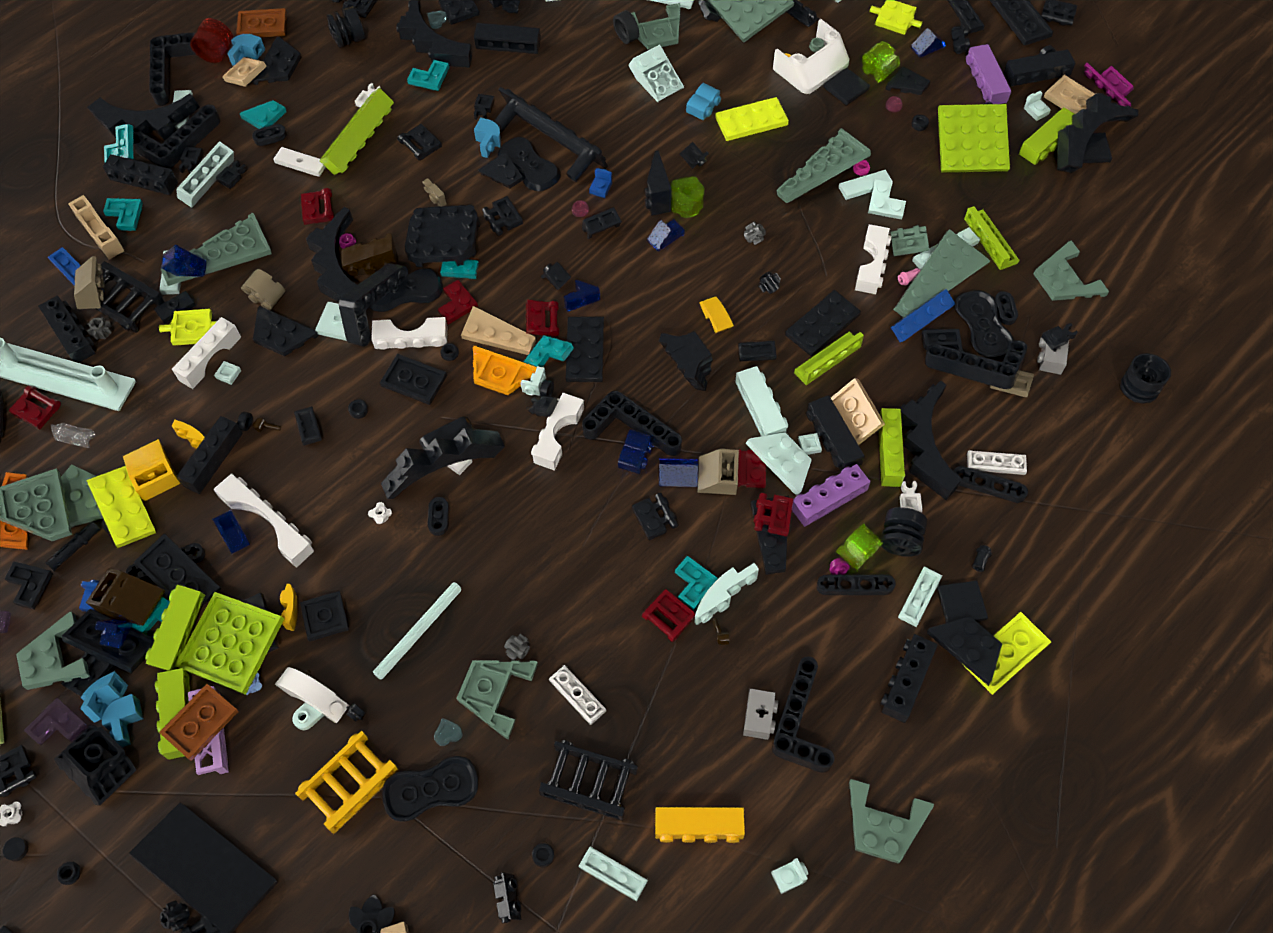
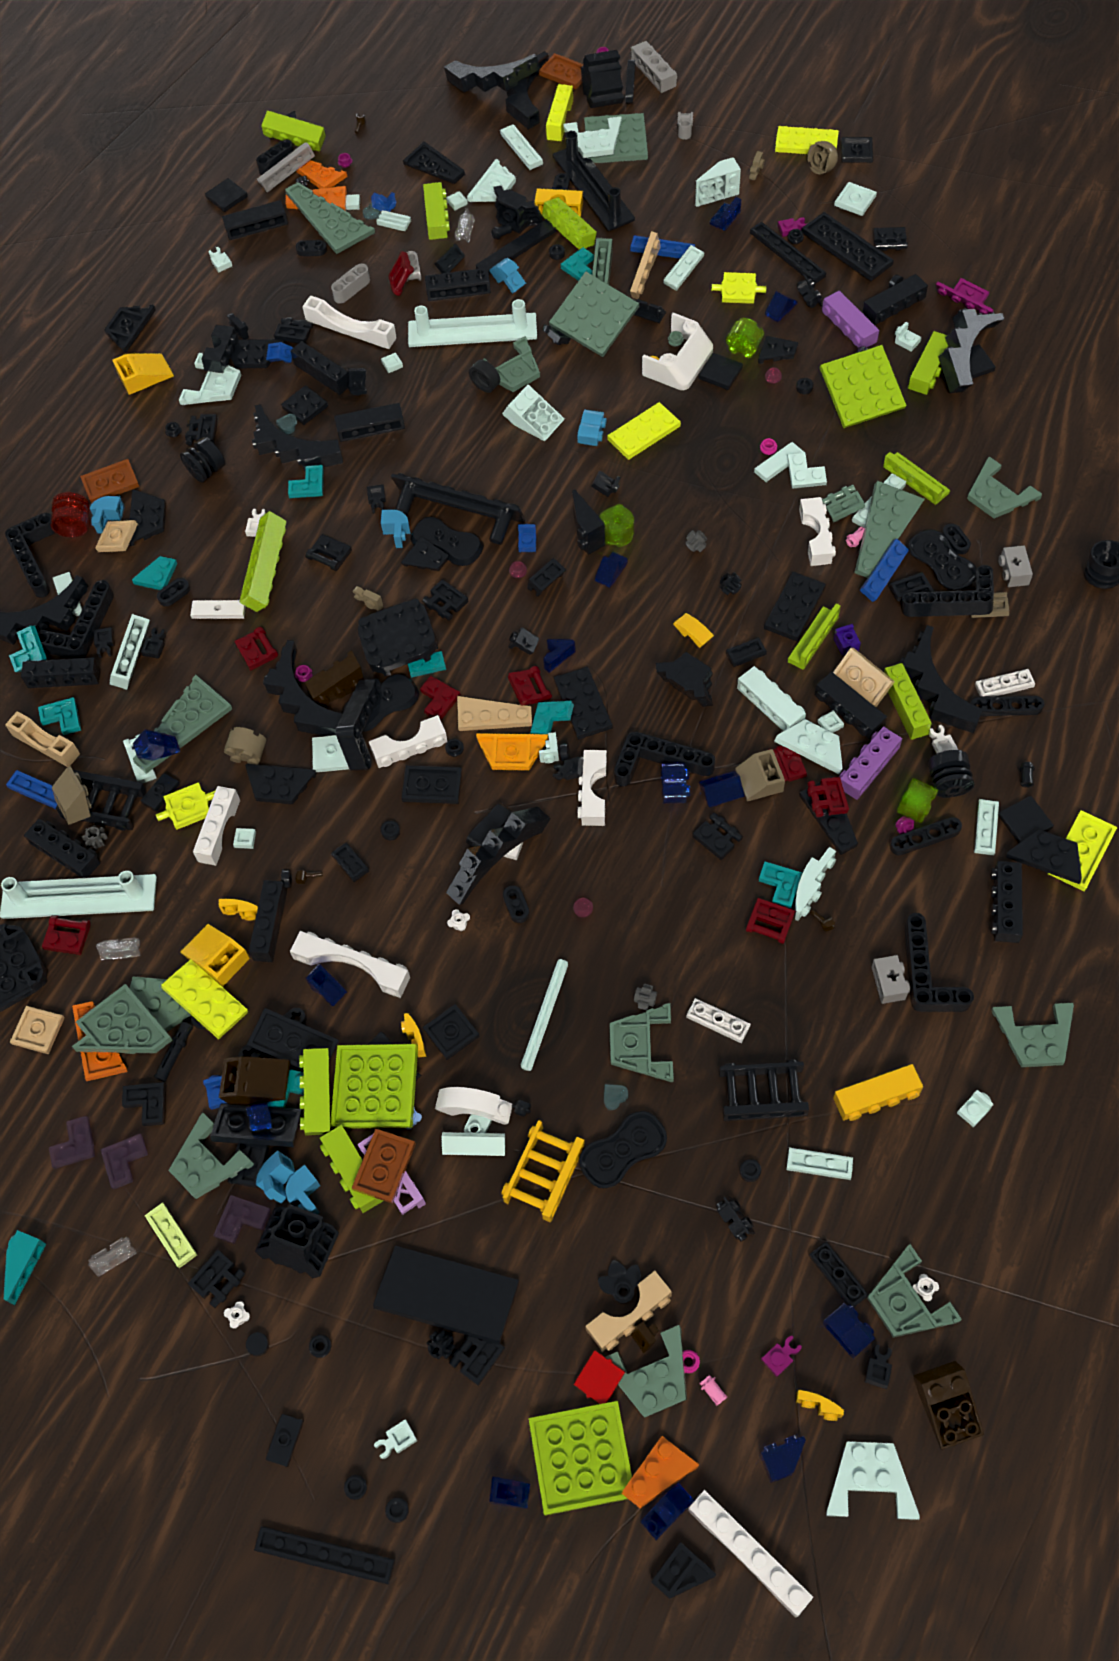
camera: 15 degrees left, 0 degrees up
(295, 731) = (473, 1144): none -> light aqua tile
(499, 541) = (583, 907): none -> clear pink plate
(826, 163) = (735, 451): sand green wing -> none
(858, 368) = (846, 638): none -> dark purple brick
(1058, 337) = (1016, 551): black plate -> none
(1068, 94) = (933, 317): tan plate -> none

